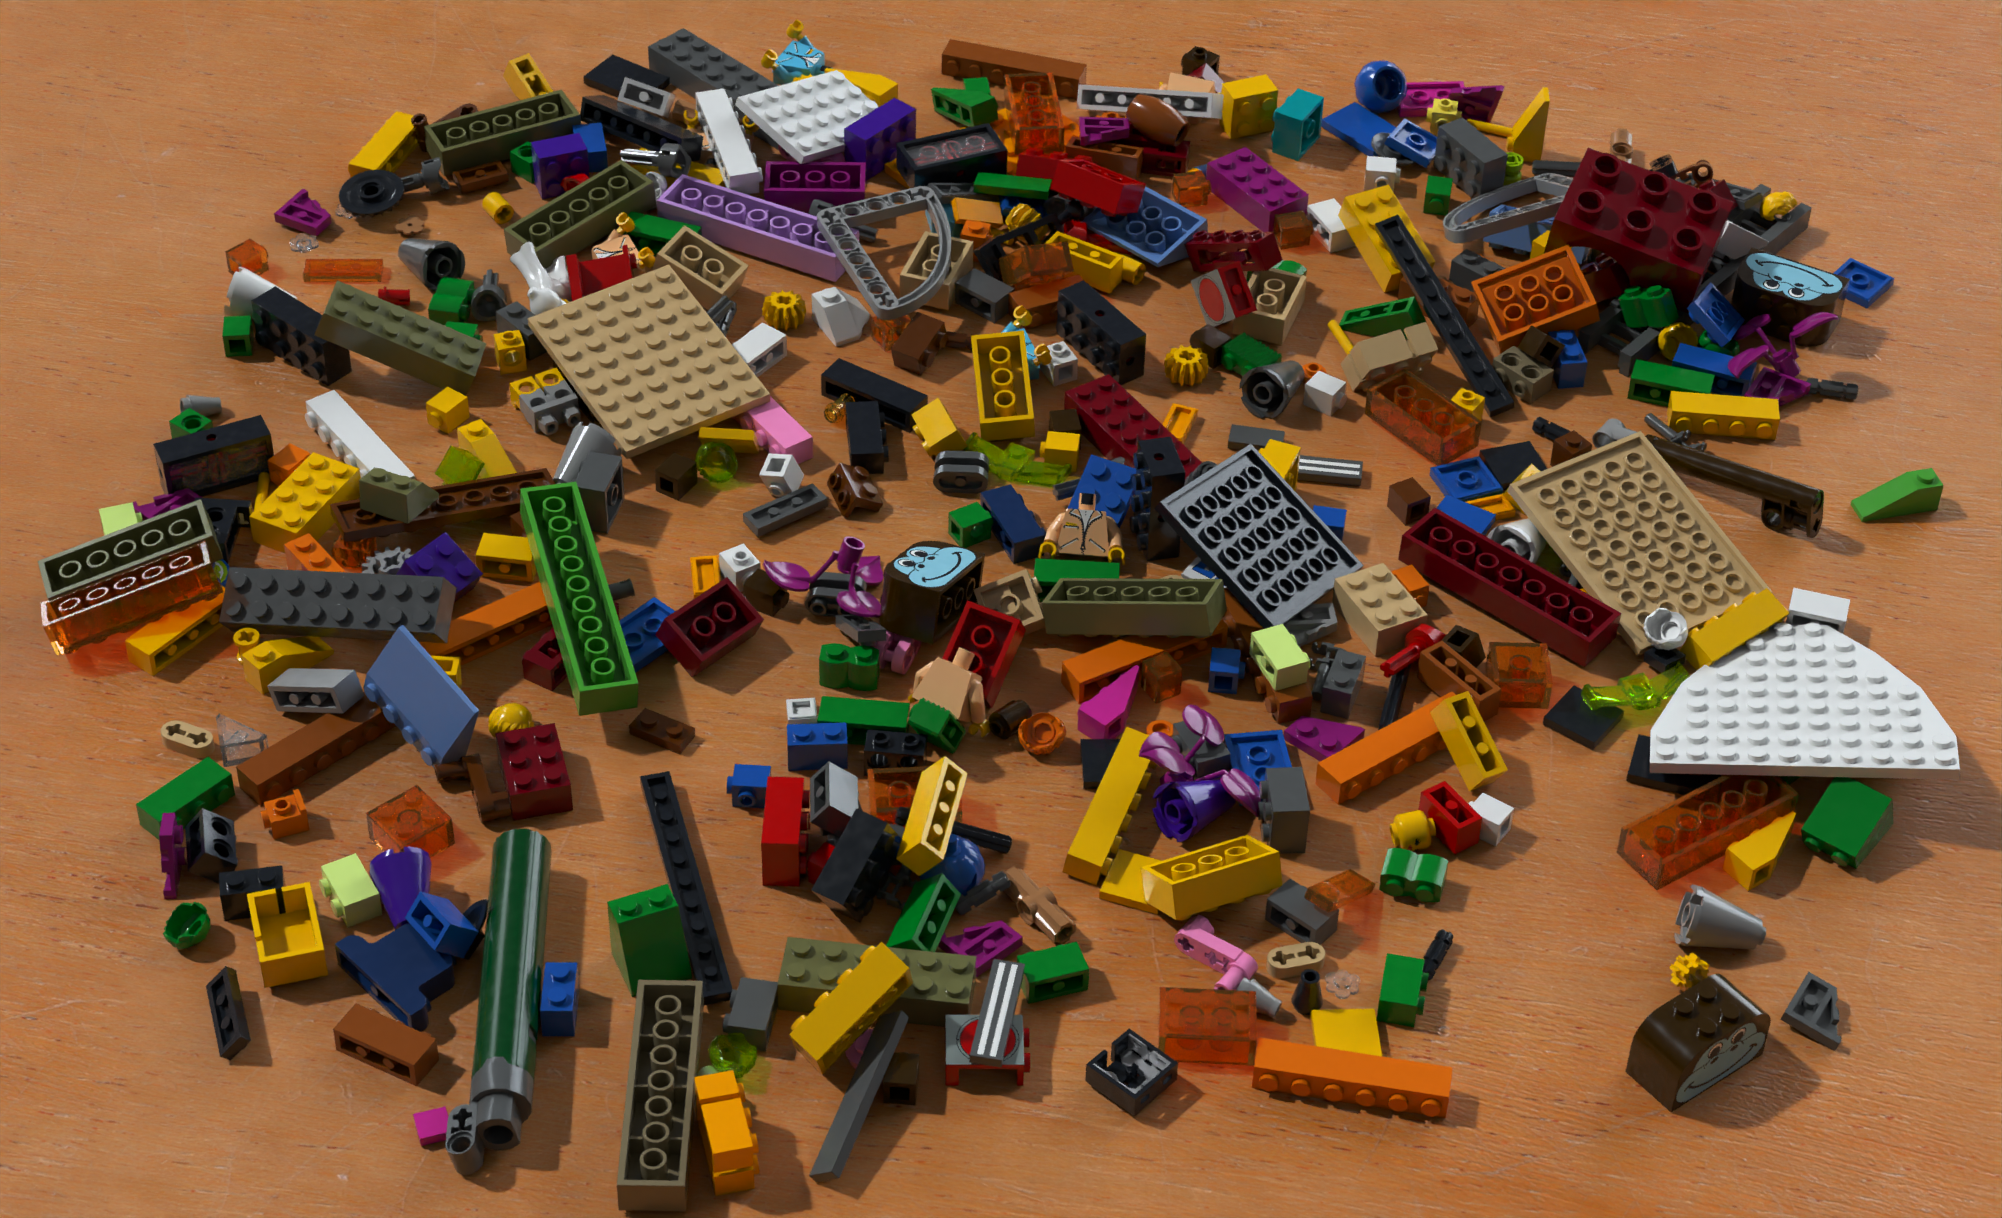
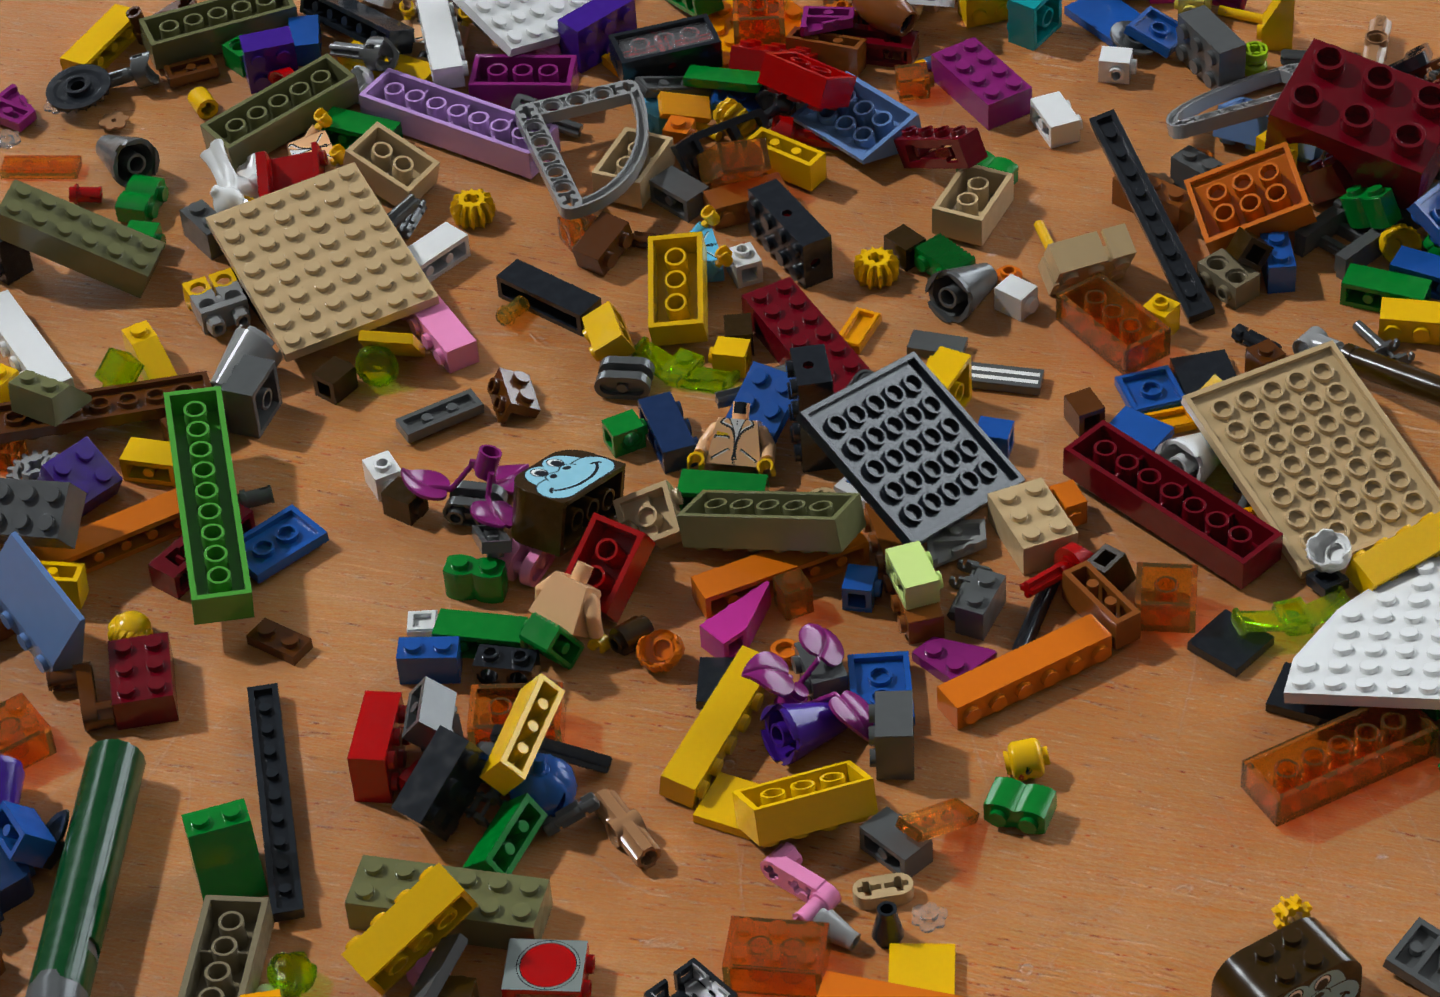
camera: 10 degrees right, 0 degrees up
(447, 410) = (118, 310): yellow brick -> none
(488, 298) = (176, 195): dark grey piece -> none
(510, 352) = (189, 251): yellow brick -> none
(559, 999) = (130, 912): blue brick -> none
(704, 573) = (349, 486): light orange tile -> none
(709, 627) = (339, 535): dark red brick -> none
(748, 785) = (349, 696): blue brick -> none
(753, 1011) = (320, 930): dark grey brick -> none
(781, 474) = (439, 379): white brick -> none
(839, 315) = (528, 213): white slope -> none
(866, 436) = (534, 340): black brick -> none
(986, 942) = (564, 867): magenta wing -> none
(997, 1013) = (560, 938): dark grey tile -> none
(1054, 972) = (629, 898): green brick -> none
(1132, 270) = (837, 167): yellow piece -> none
(1223, 294) = (921, 193): red panel -> none
(1292, 229) = (1012, 124): clear orange brick -> none
(1359, 217) = (1091, 100): yellow brick -> none
(1383, 317) = (1092, 217): green slope -> none
(1400, 990) = (986, 925): green brick -> none
(1437, 195) = (1172, 87): green brick -> none
(1437, 952) = (1029, 889): black axle -> none
(1453, 817) = (1067, 745): red brick -> none
(1468, 741) = (1097, 666): yellow brick -> none
(1496, 818) = (1109, 748): white brick -> none
(1716, 923) = (1331, 863): light grey cone -> none
(1757, 855) = (1390, 792): yellow slope -> none

